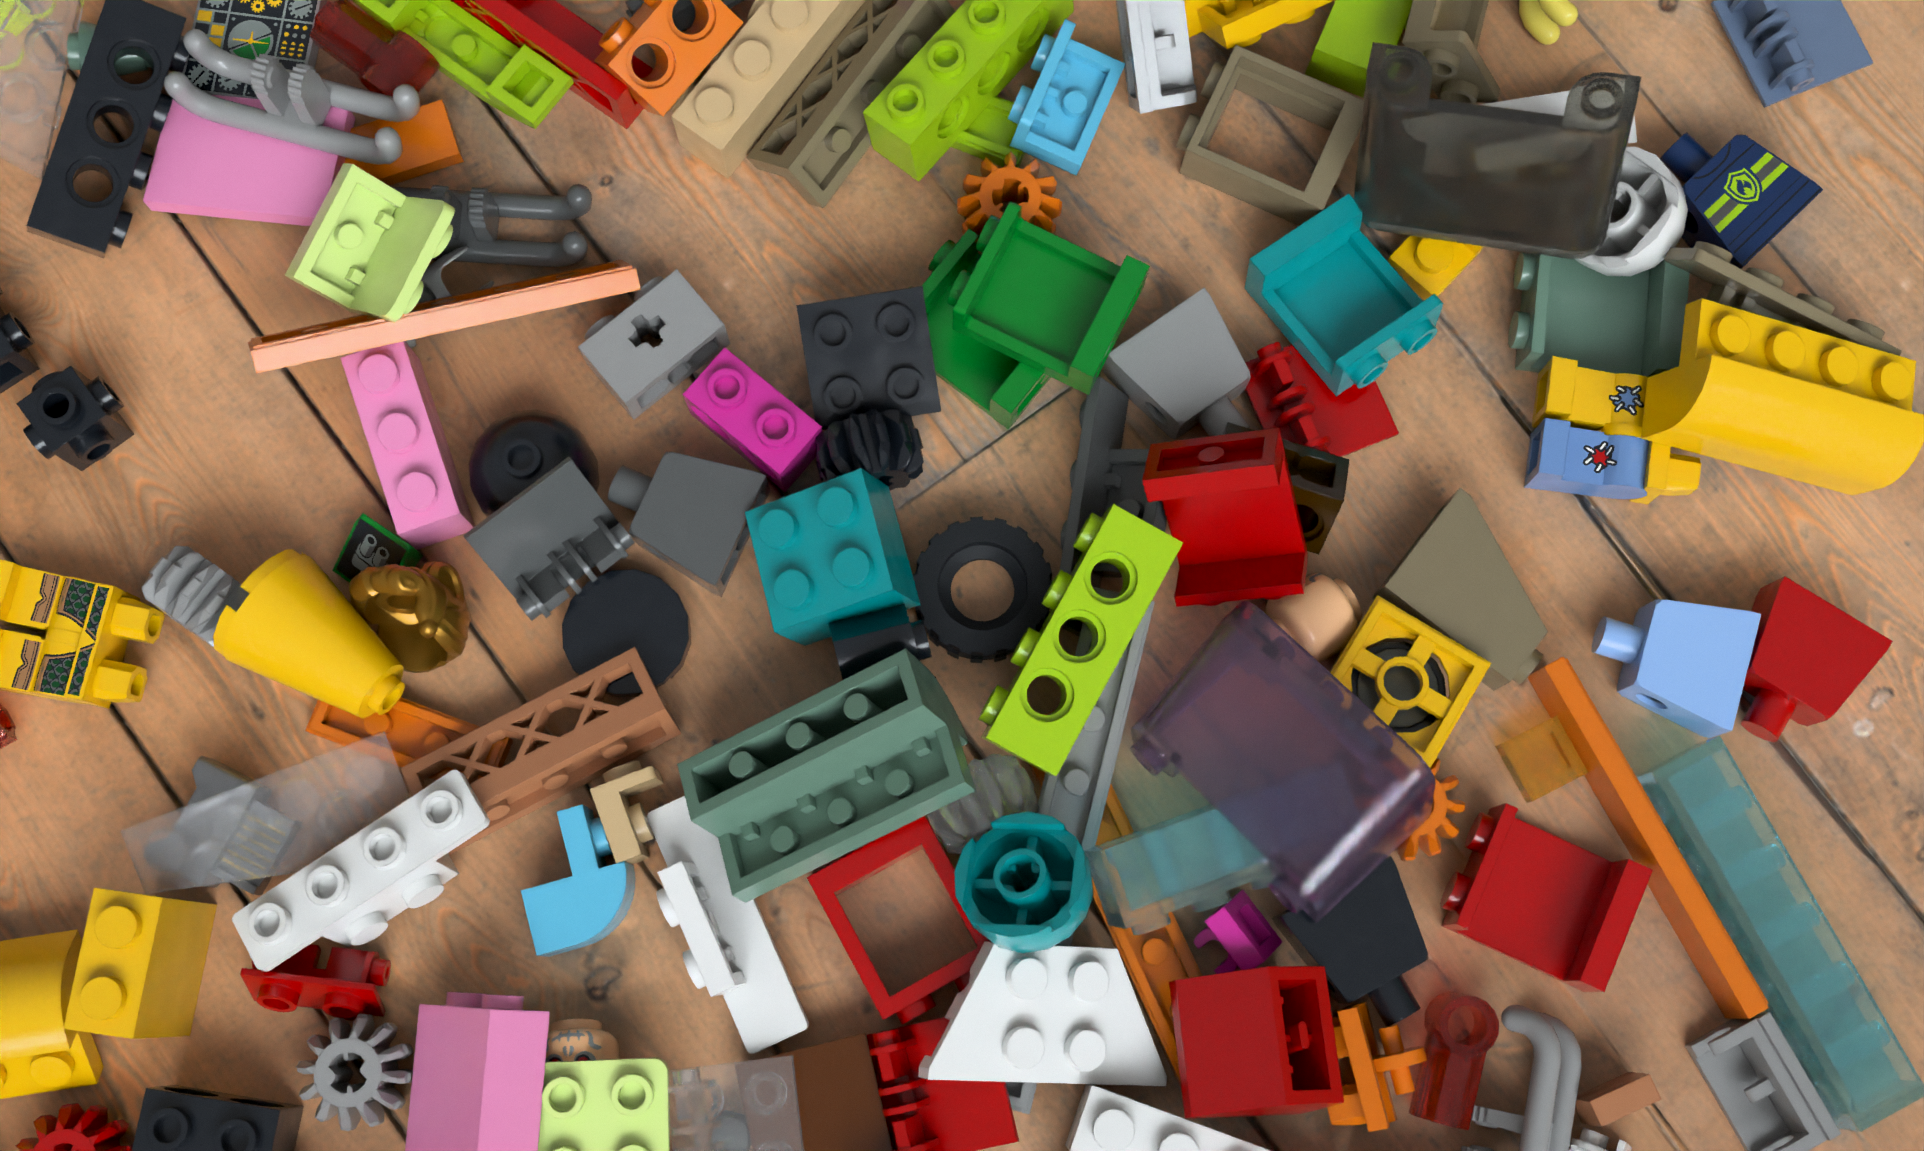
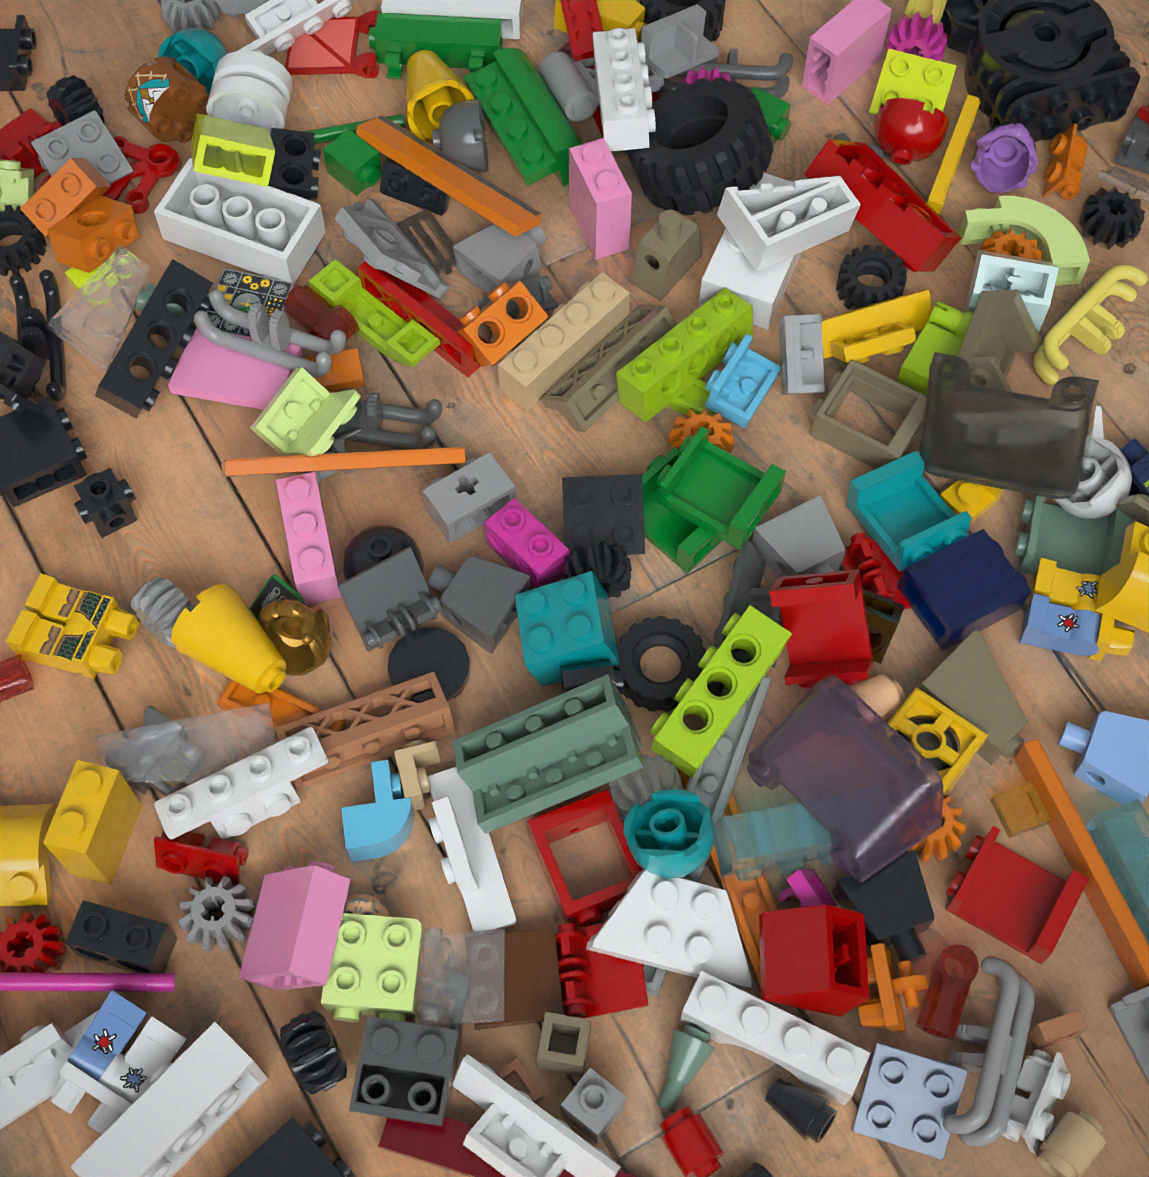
camera: 10 degrees right, 15 degrees down
(1437, 415) = (963, 588): none -> clear blue brick

